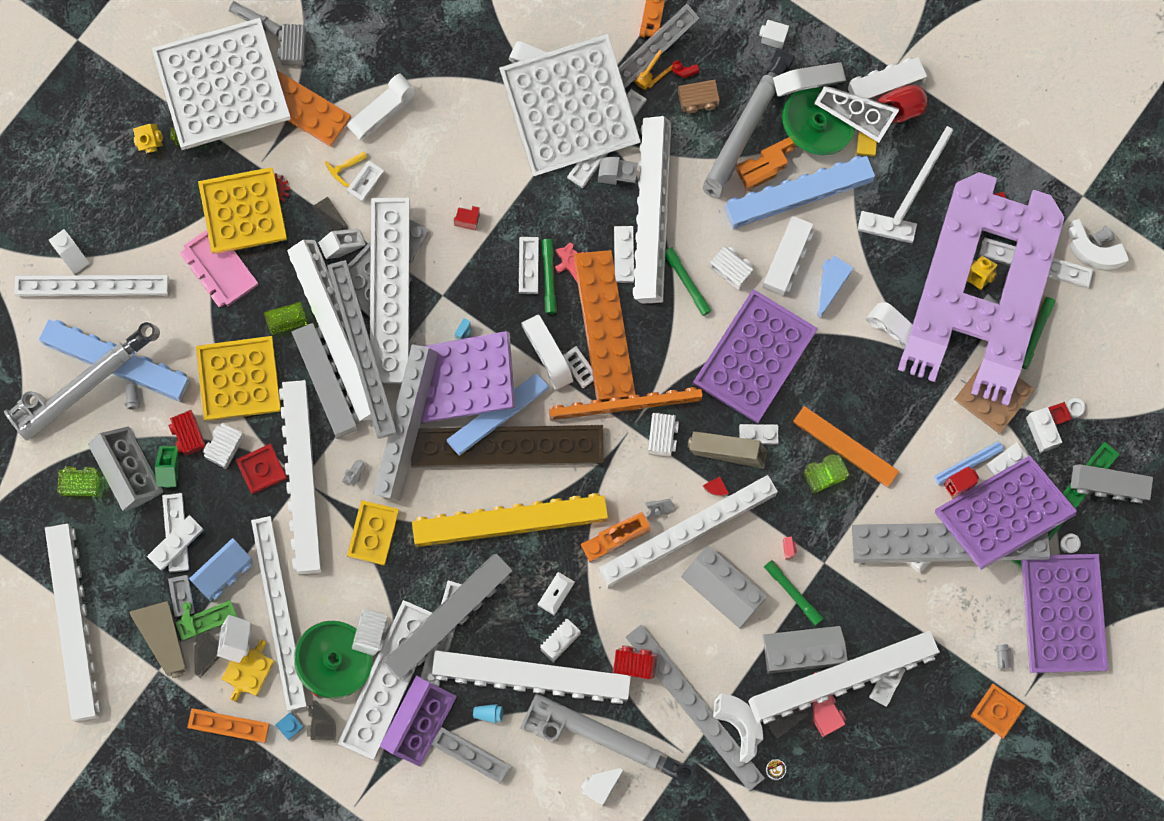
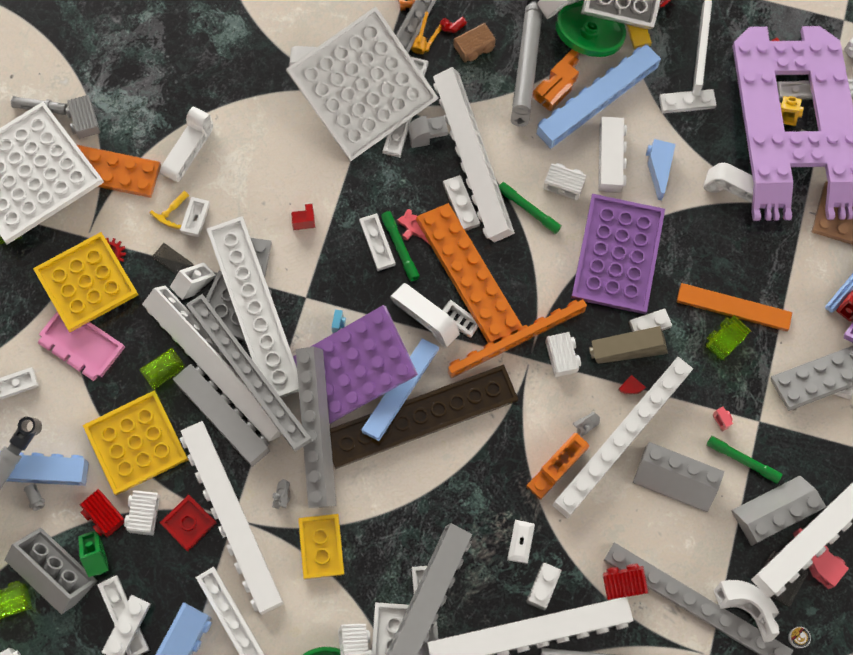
camera: 20 degrees left, 5 degrees down
(510, 520) = (449, 487): yellow brick -> none

